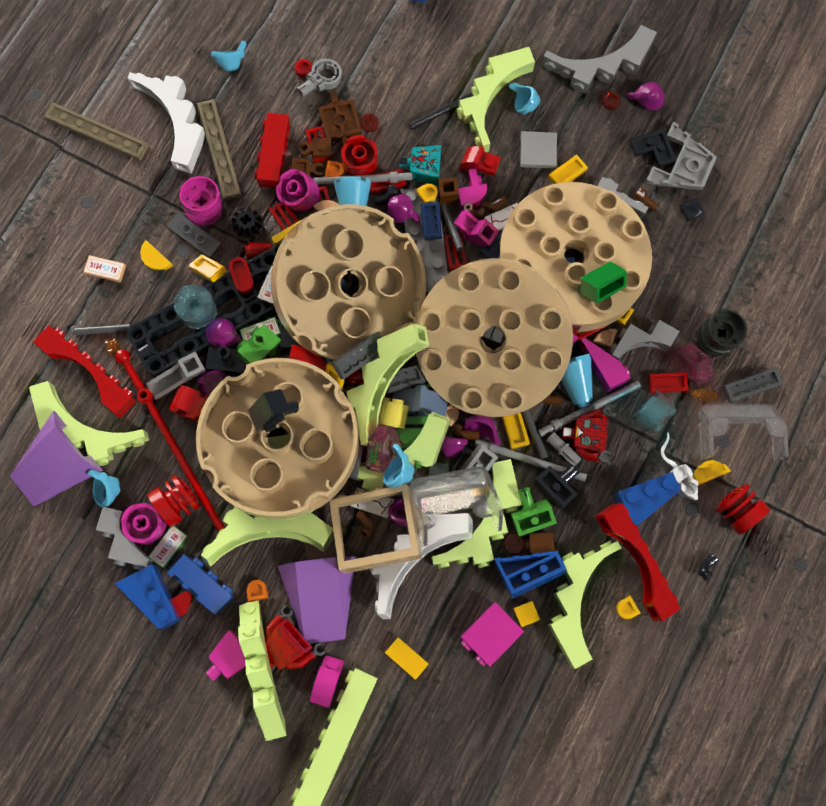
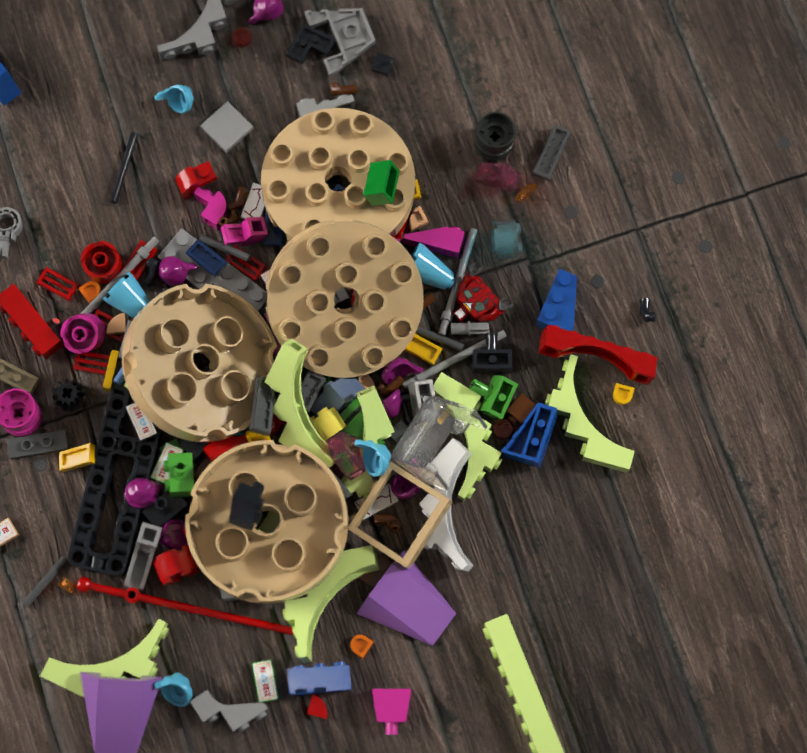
camera: 45 degrees left, 0 degrees up
(111, 395) = (25, 628): red arch -> none
(134, 530) = (241, 689): dark pink brick -> none
(151, 596) = (288, 724): blue wedge -> none
(153, 259) = (25, 491): yellow tile -> none
(174, 500) = (236, 643): red wheel -> none
(190, 297) = (92, 489): clear light blue brick -> none
(241, 275) = (110, 436): red tile -> none
(255, 249) = (97, 408): red cone -> none
(259, 671) = (423, 691): yellowish green arch -> none
(286, 644) = (421, 658): red torso -> none
(305, 166) = (67, 310): reddish brown plate -> none
(320, 148) = (63, 284): reddish brown plate -> none
(326, 681) = (475, 652): dark pink brick -> none
(340, 119) = (54, 249): reddish brown plate -> none
(369, 123) = (78, 229): clear red tile -> none
(406, 658) = (511, 581): yellow tile -> none
(423, 163) = (154, 220): teal torso -> none
(428, 193) = (181, 240): yellow tile -> none
(448, 191) = (195, 223): reddish brown brick -> none
(491, 635) = (551, 505): dark pink brick -> none
(500, 71) = (137, 94): yellowish green arch -> none
(526, 614) = (560, 467): yellow tile -> none
(568, 171) = (265, 123): yellow tile -> none
(658, 336) = (454, 180): light grey arch -> none
(668, 382) = (492, 208): red tile -> none
(683, 475) = (569, 264): white animal -> none
(709, 470) = (582, 243): yellow tile -> none
(715, 420) = (550, 200): clear windscreen -> none
(744, 511) = (630, 247): red wheel -> none

